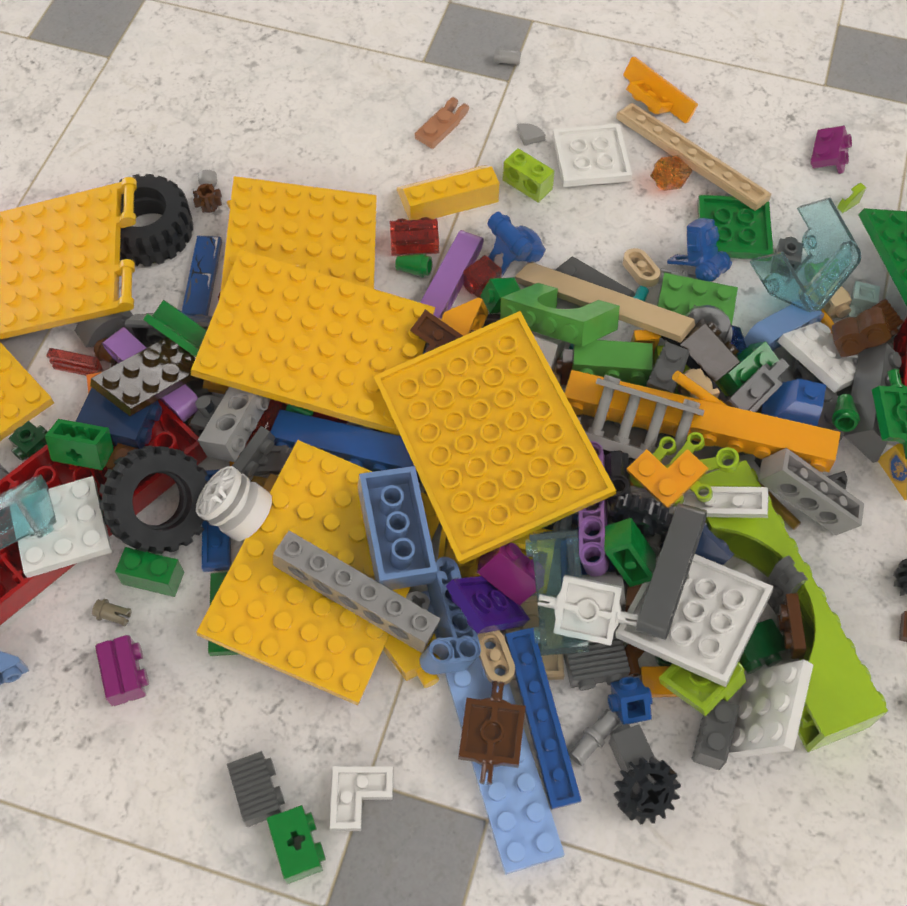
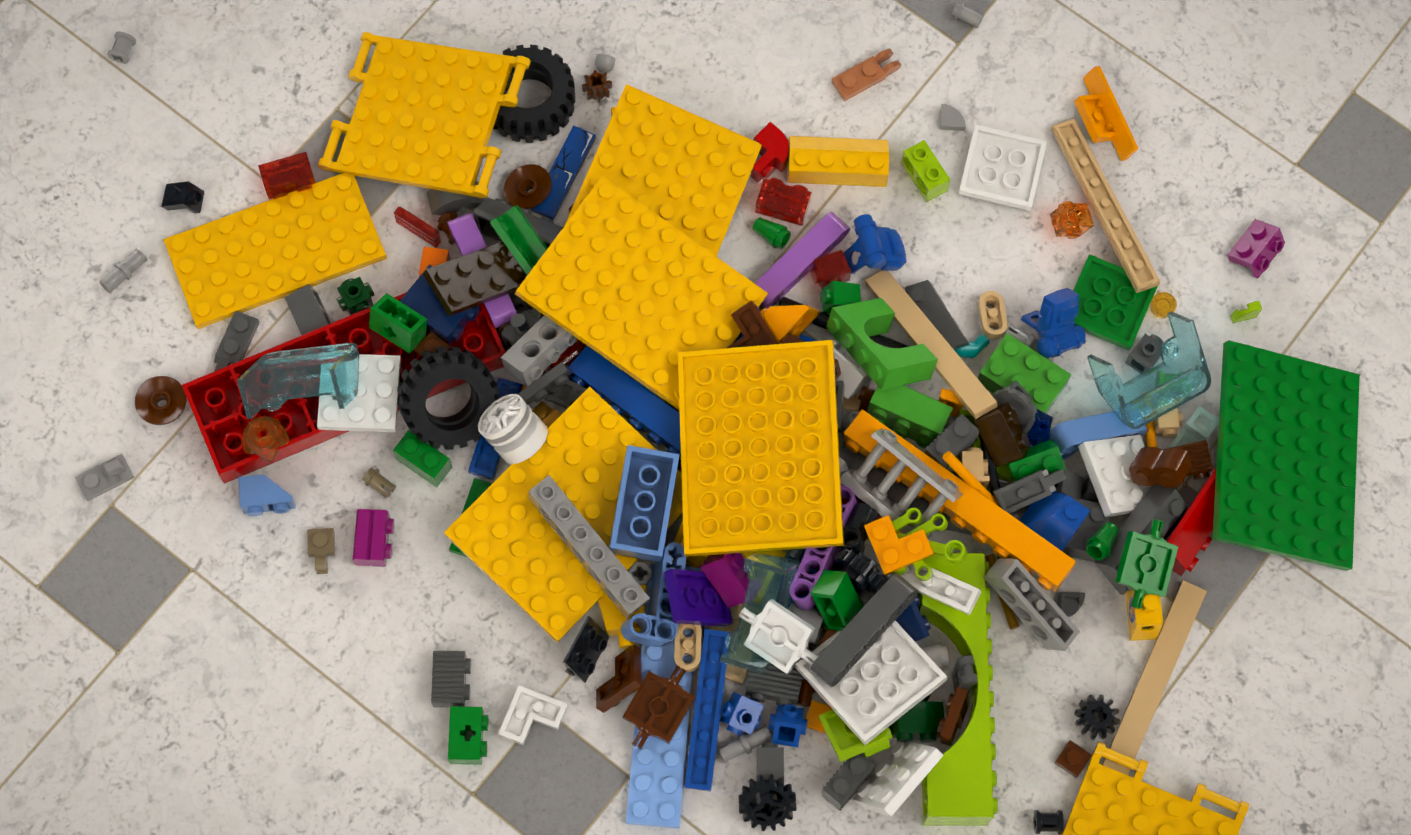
camera: 20 degrees right, 10 degrees up
(67, 699) = (320, 545): none -> dark tan plate
(176, 290) = (524, 179): none -> reddish brown dish
(388, 203) = (773, 152): none -> red brick
(391, 702) = (586, 650): none -> black hinge
(446, 719) = (626, 679): none -> reddish brown plate
(578, 706) = (741, 714): none -> blue brick
(780, 216) = (1162, 304): none -> clear yellow tile

